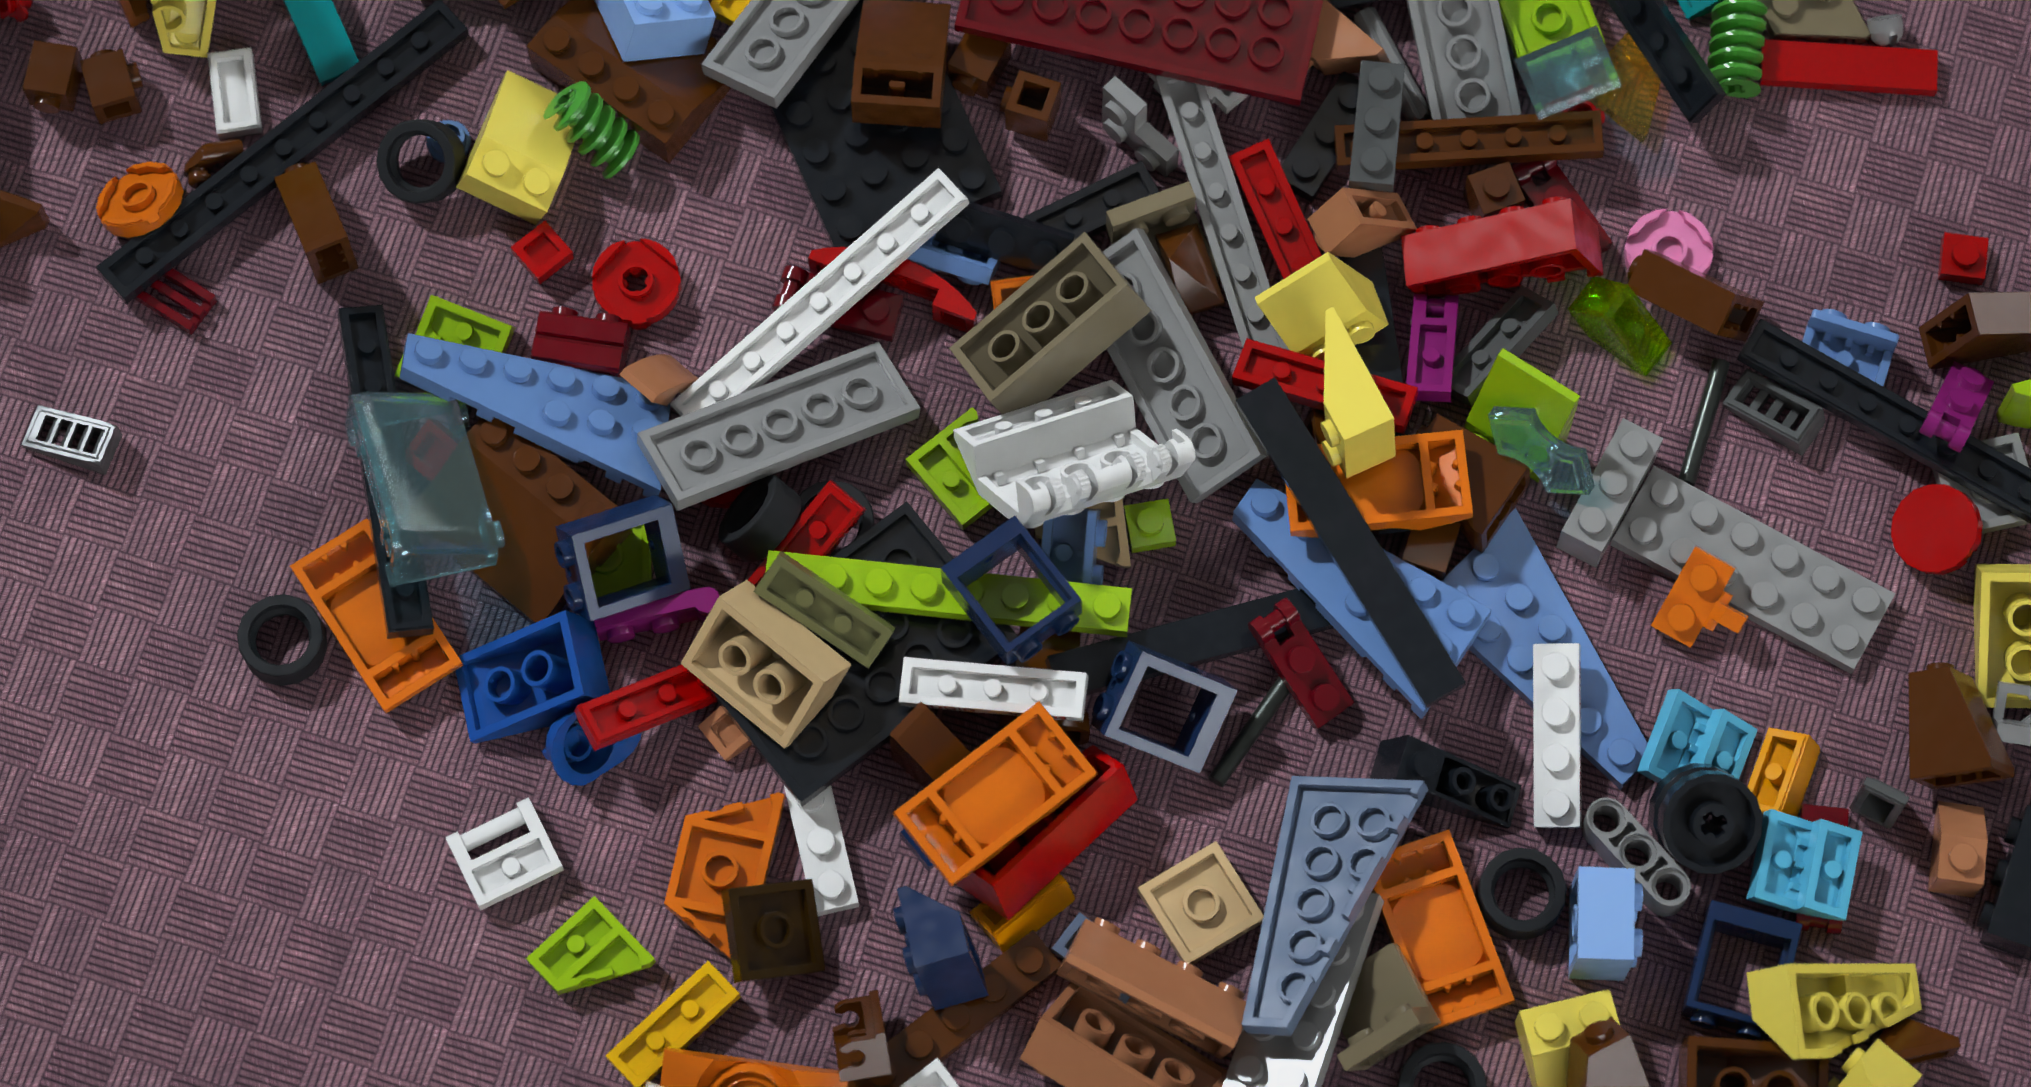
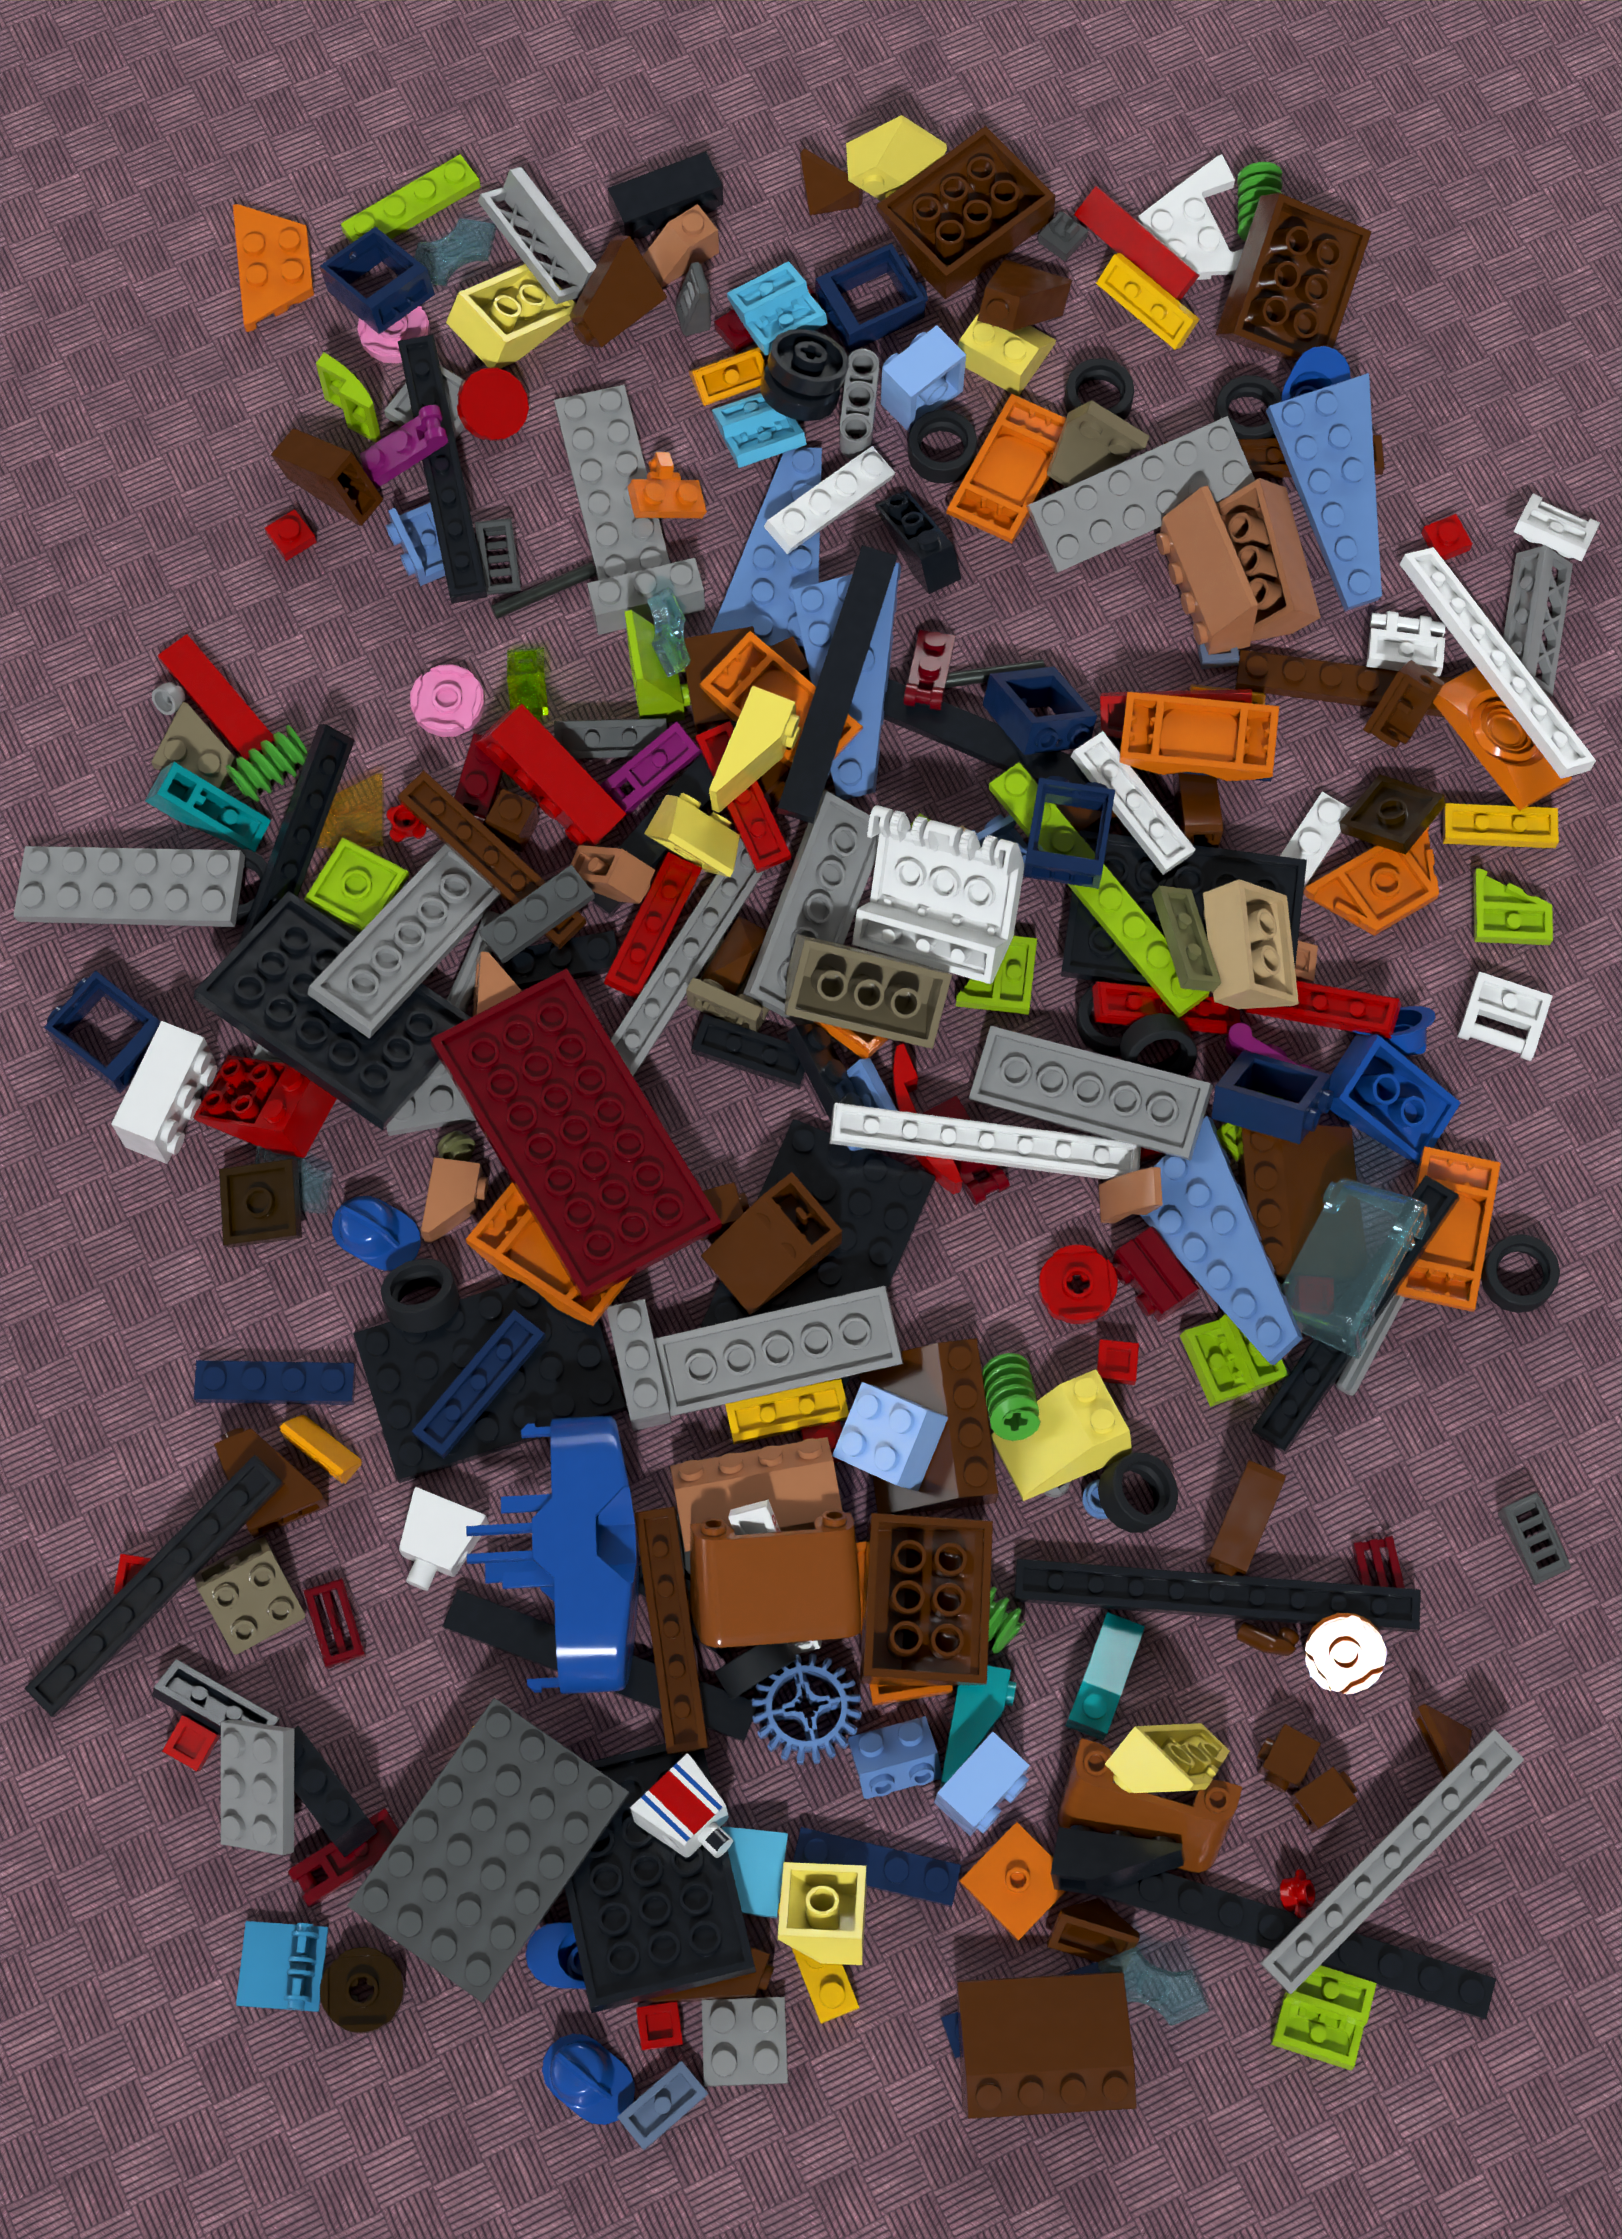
camera: 135 degrees left, 0 degrees up
(235, 93) = (1207, 1676): white tile -> none
(349, 461) = (1356, 1368): none -> light grey axle
(938, 950) = (1309, 701): dark blue slope -> none
(1031, 105) = (721, 1144): reddish brown brick -> none
(1126, 120) = (675, 1069): light grey plate -> none
(1201, 904) = (1126, 607): tan plate -> none
(1324, 869) = (1042, 542): sand blue wing -> none
(1567, 72) = (392, 827): clear light blue slope -> none
(1694, 295) = (472, 645): reddish brown slope -> none
(1828, 1007) = (854, 228): light yellow wedge -> none

